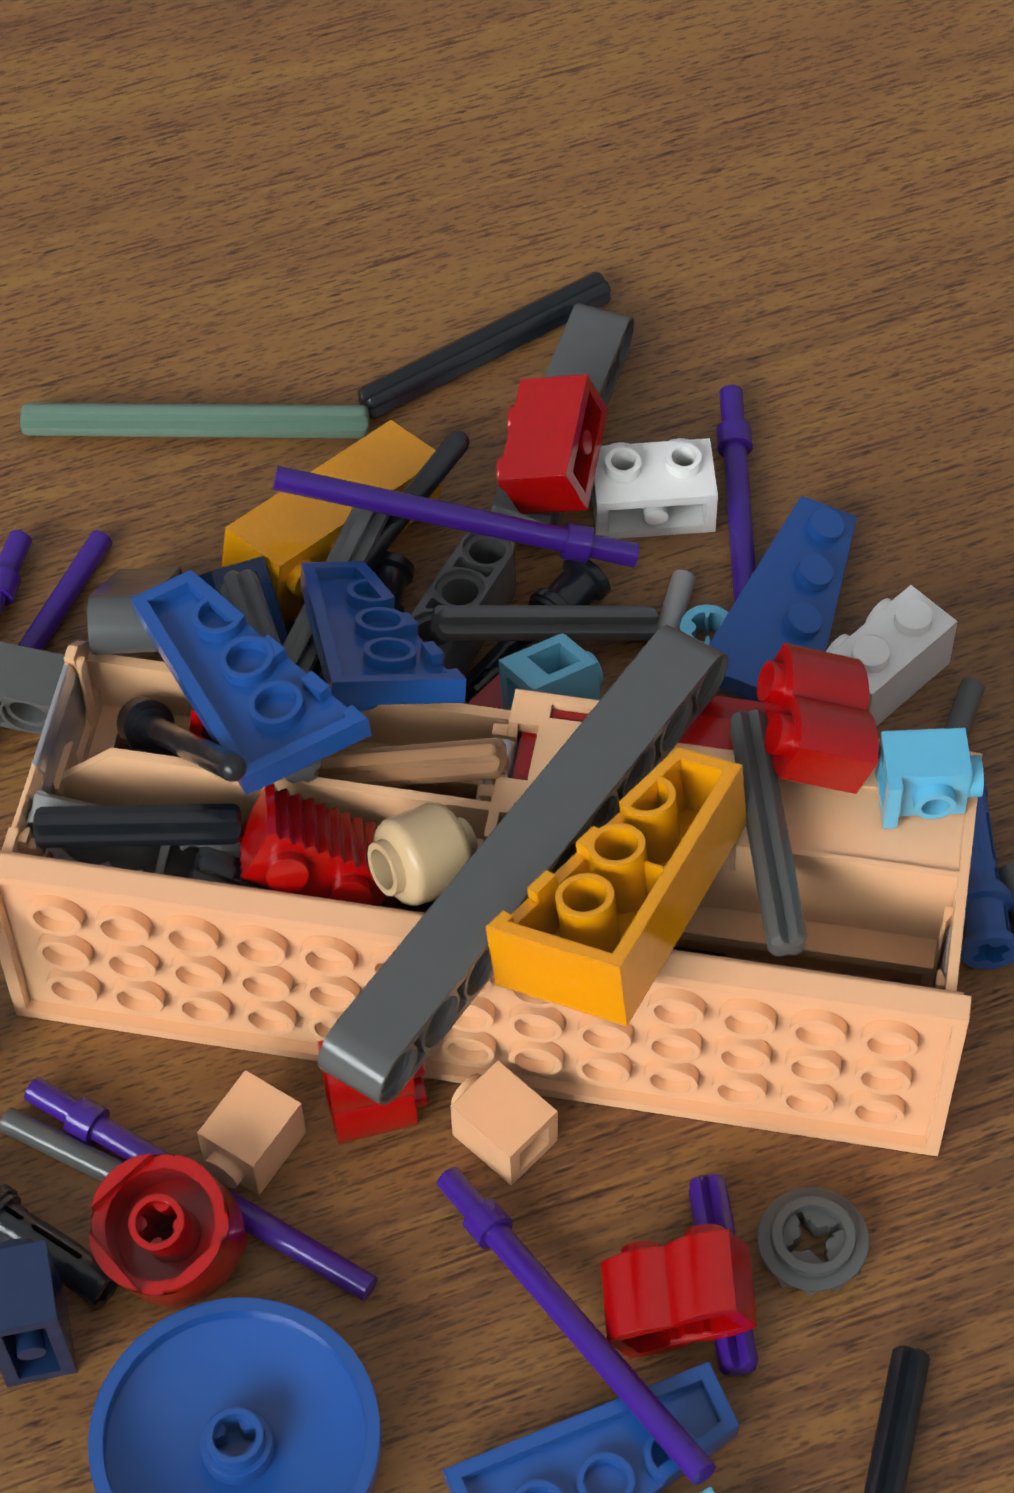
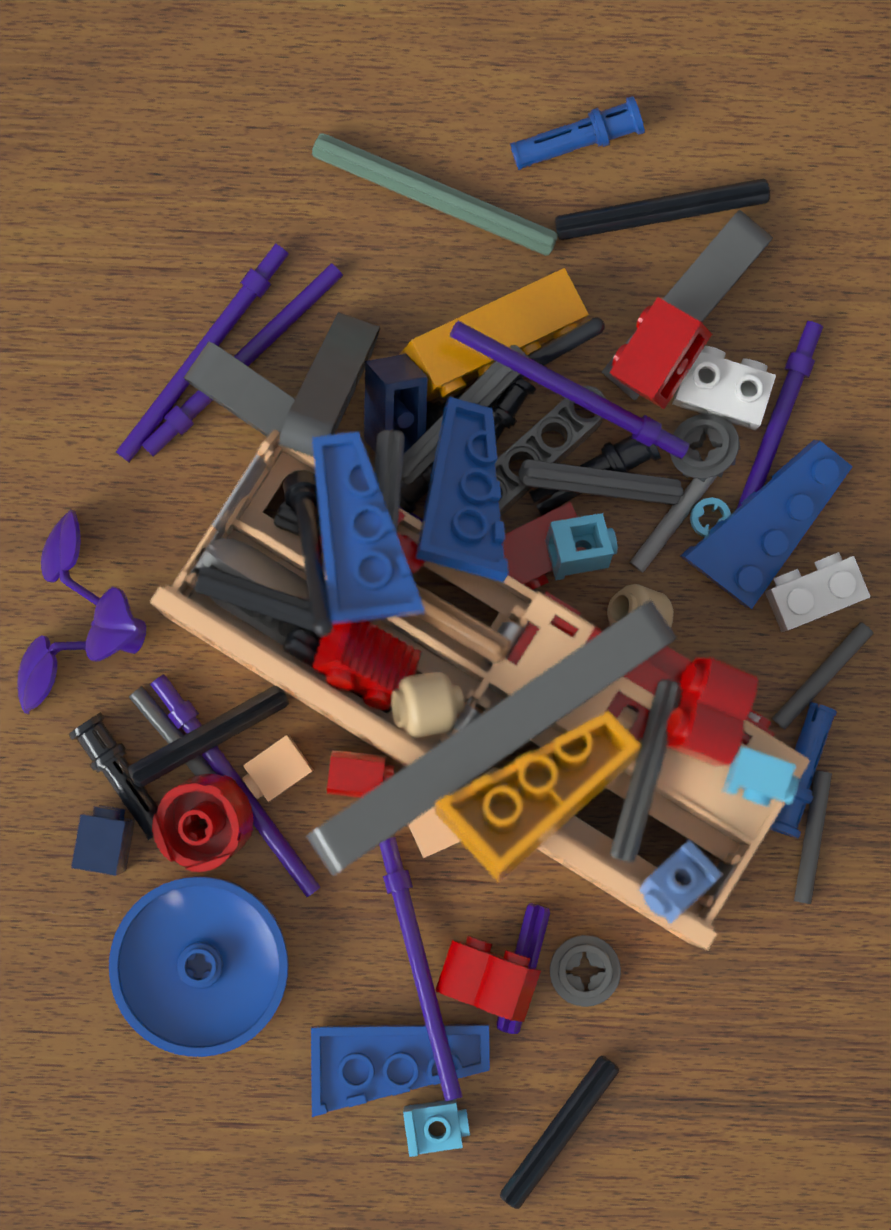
camera: 20 degrees right, 30 degrees up
(130, 1124) = (208, 736): none -> black axle
(367, 290) = (597, 128): none -> blue pin
(673, 535) = (721, 435): none -> dark grey gear
(885, 938) = (691, 871): none -> medium blue brick

